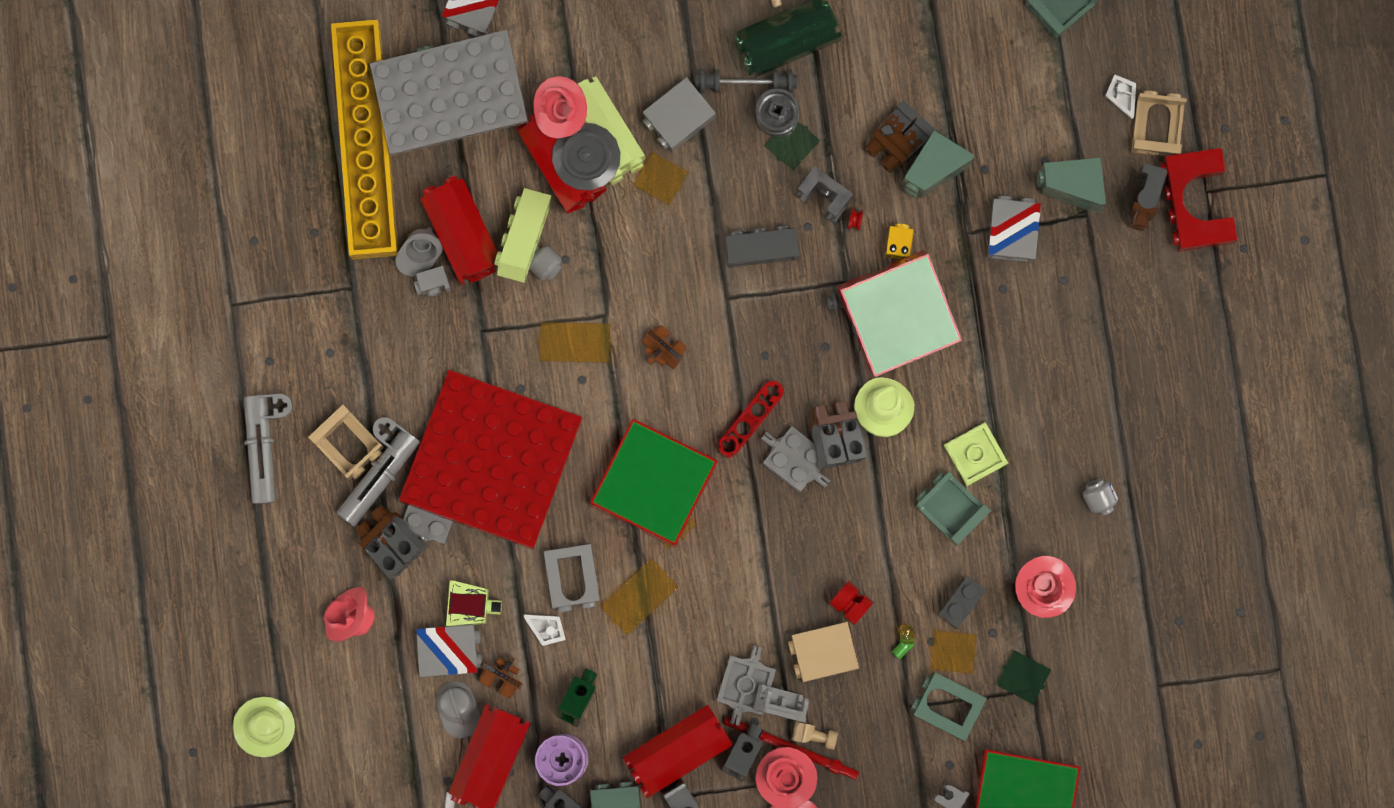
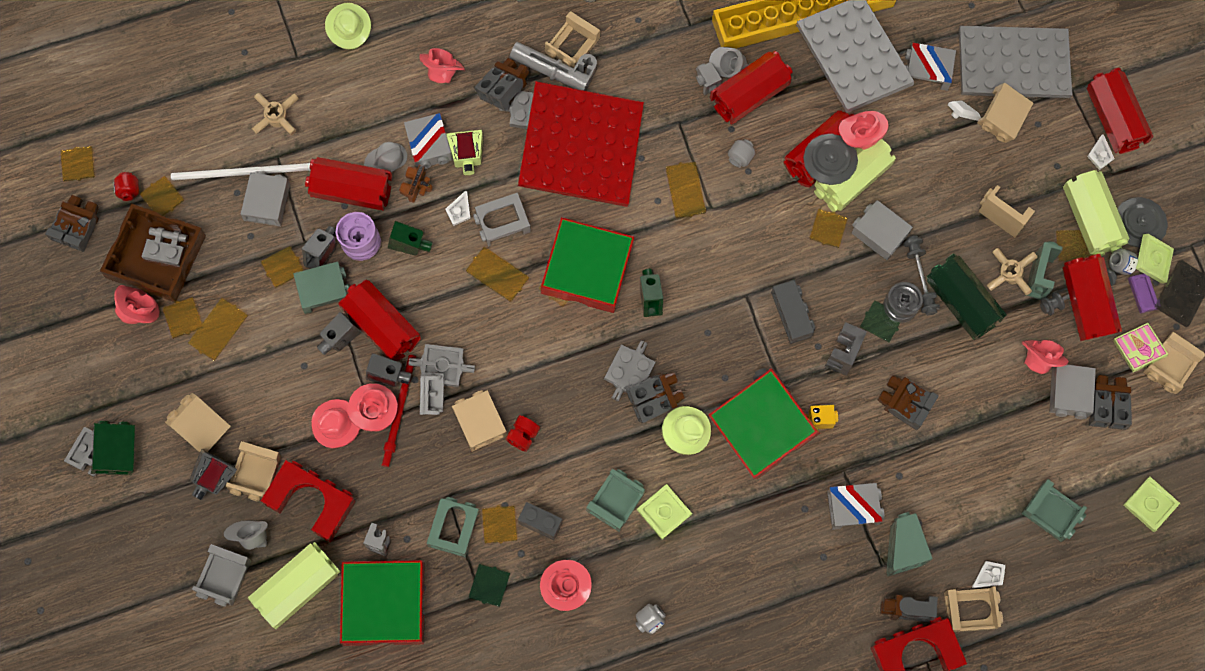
camera: 75 degrees right, 10 degrees down
(523, 235) = (758, 130): yellowish green brick -> none
(662, 351) = (693, 251): dark orange hips -> none
(714, 415) = (651, 293): none -> dark green torso
(749, 418) = (655, 328): red beam -> none
(805, 733) = (412, 418): tan leg -> none
(855, 219) = (832, 379): red bush -> none
(907, 640) = (501, 484): arm -> none
(935, 166) = (890, 430): sand green slope -> none

